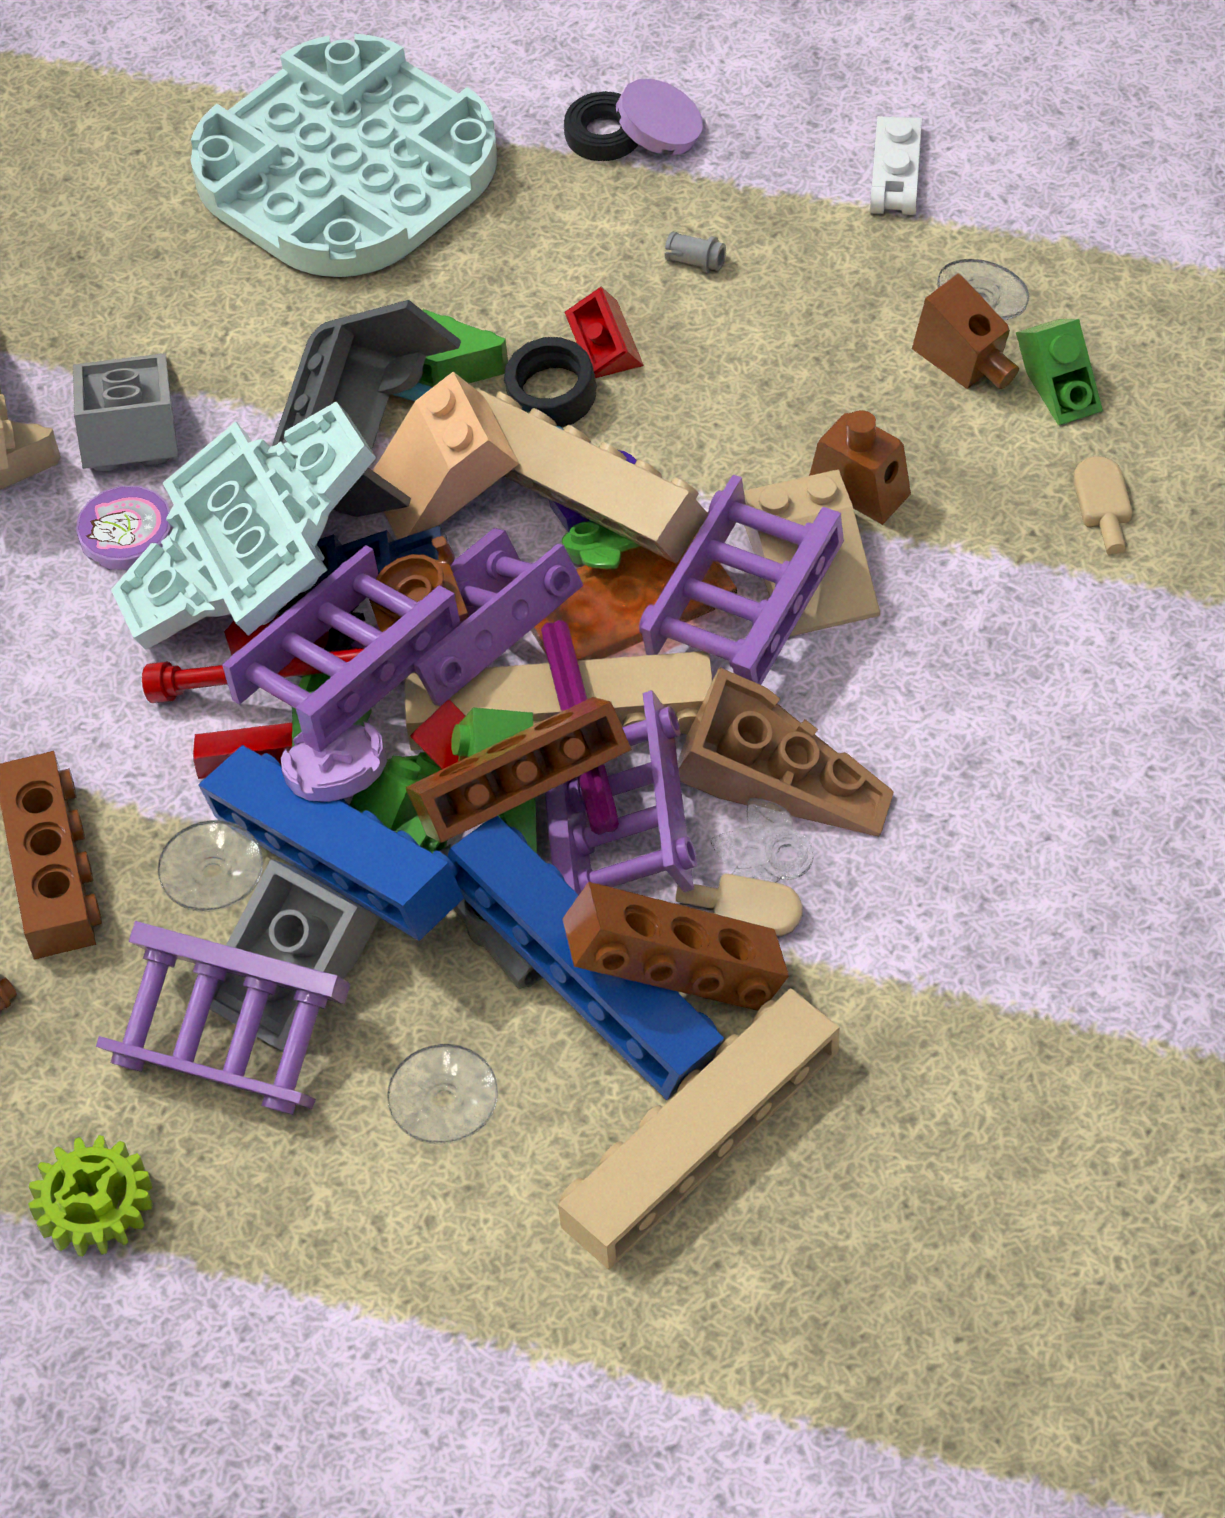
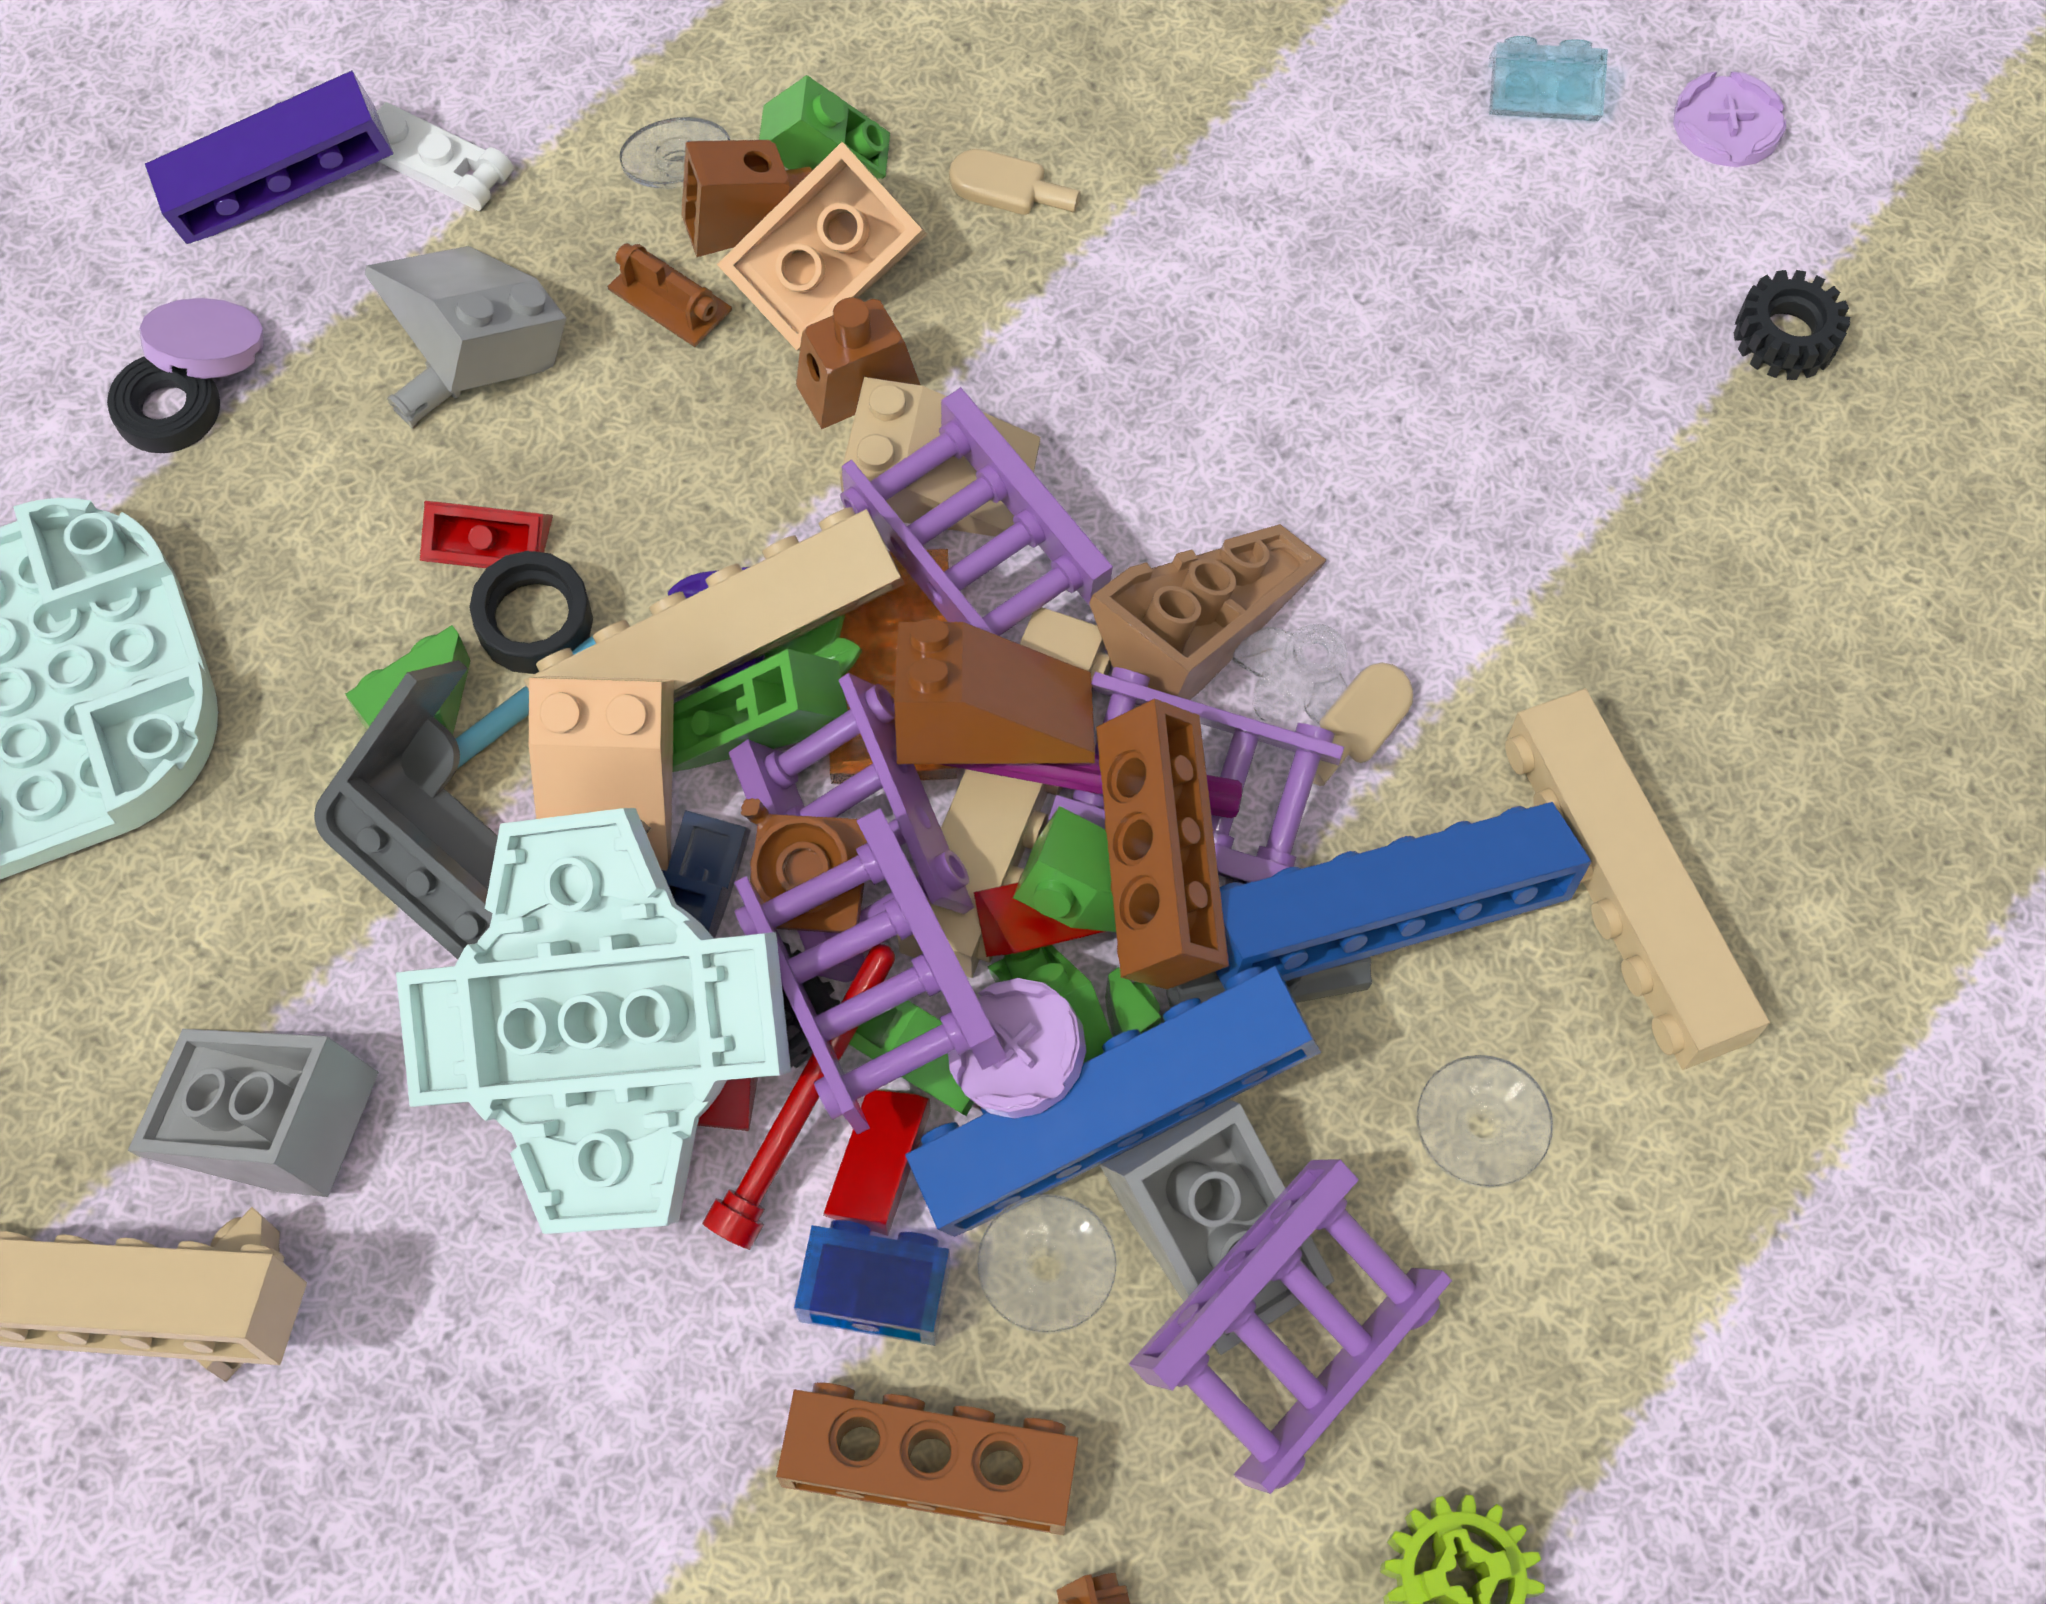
camera: 70 degrees left, 10 degrees up
(121, 525) = (445, 1181): tile -> none
(152, 775) = (873, 1282): none -> clear blue brick
(532, 523) = (766, 703): none -> bright green slope
(591, 630) = (986, 700): none -> dark orange slope
(674, 947) = (1449, 796): dark orange brick -> none
(762, 239) = (471, 315): none -> light grey slope
(822, 79) = (269, 158): none -> dark purple brick
(862, 342) = (666, 295): none -> dark orange hinge
(956, 404) = (821, 245): none -> light nougat slope

